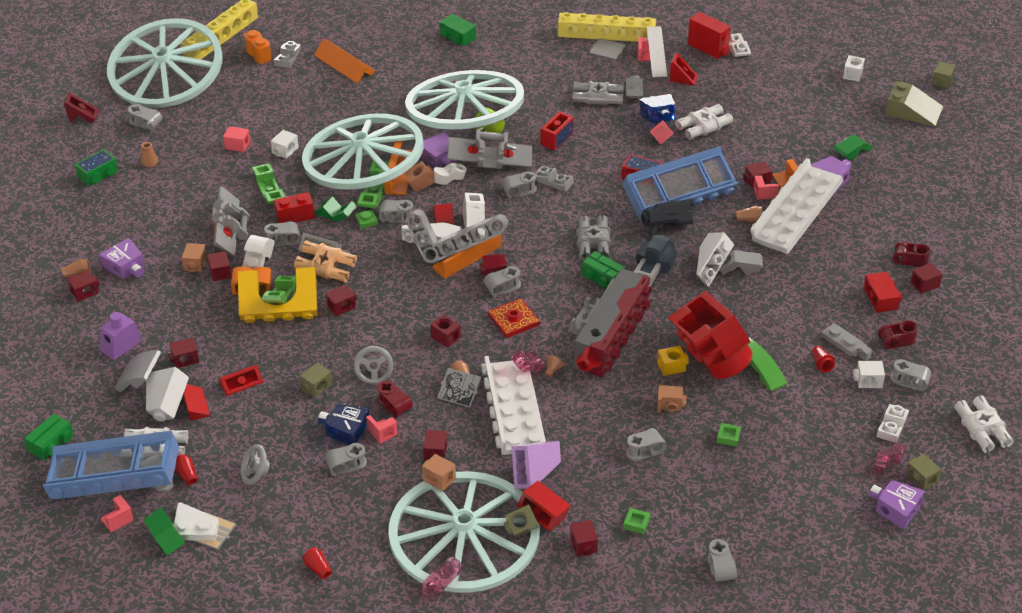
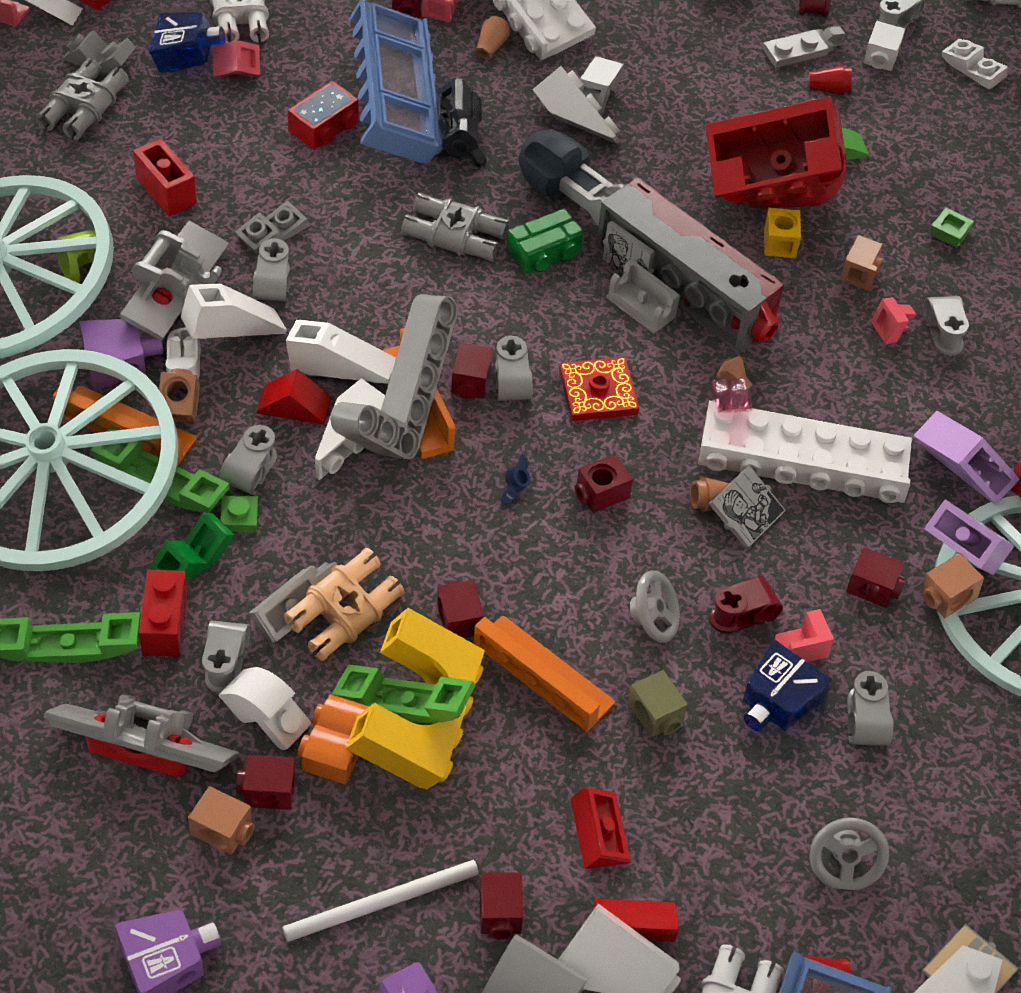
camera: 75 degrees left, 10 degrees up
(176, 319) = (380, 900): none -> white piece
(320, 338) = (542, 671): none -> orange panel
(435, 302) = (516, 479): none -> dark blue piece
(470, 471) = (969, 537): none -> lavender slope
(474, 171) = (224, 312): none -> white slope
(631, 420) = (892, 319): none -> coral tile

